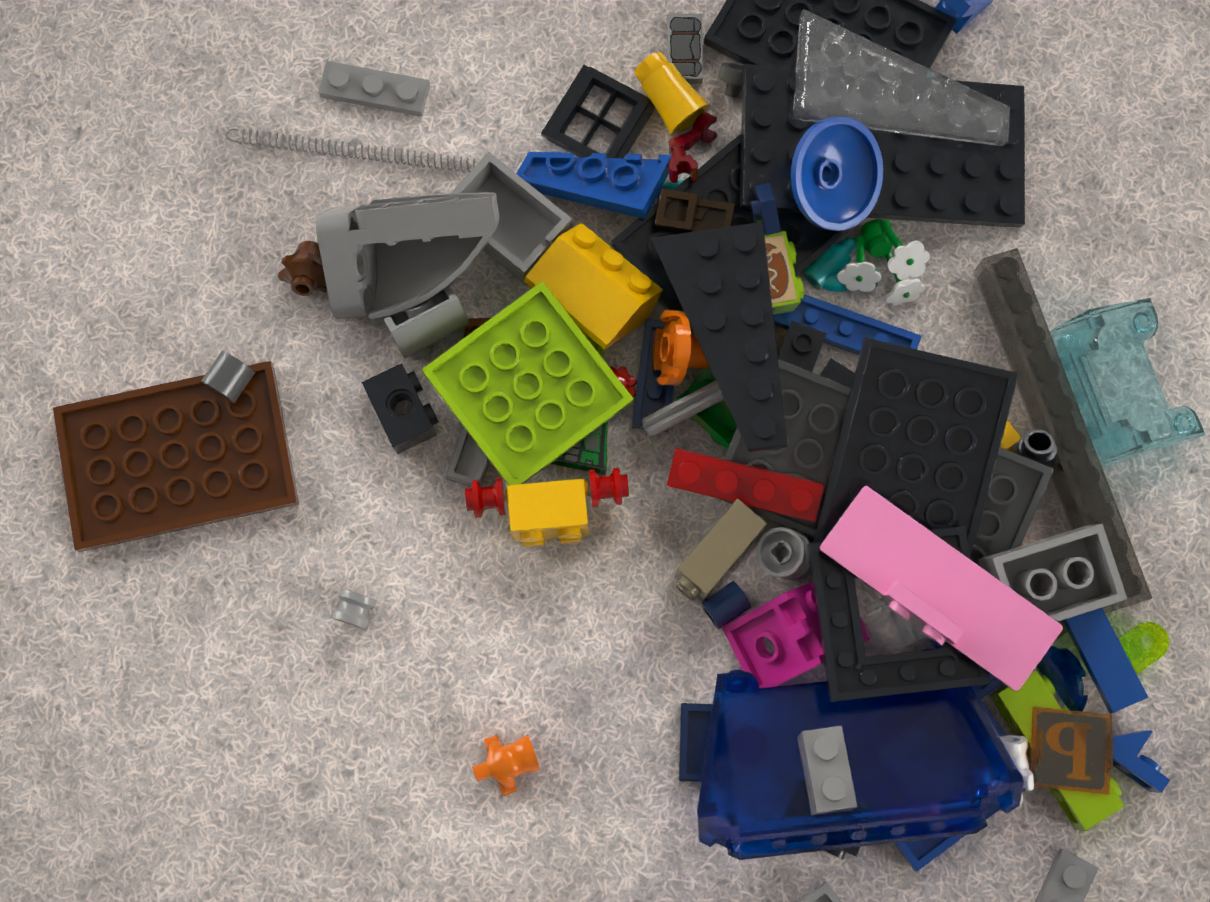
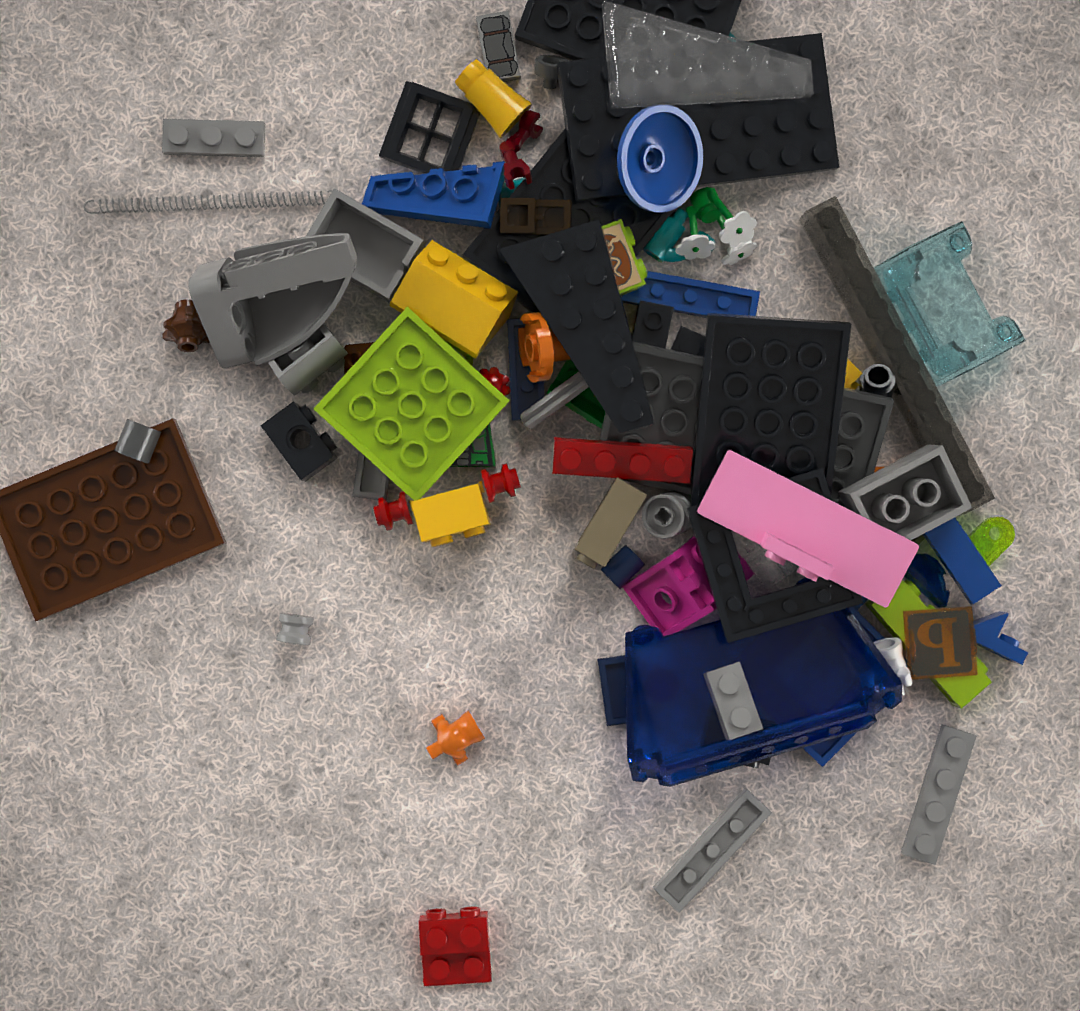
camera: 15 degrees left, 10 degrees up
(765, 209) = (599, 202): dark blue plate -> none

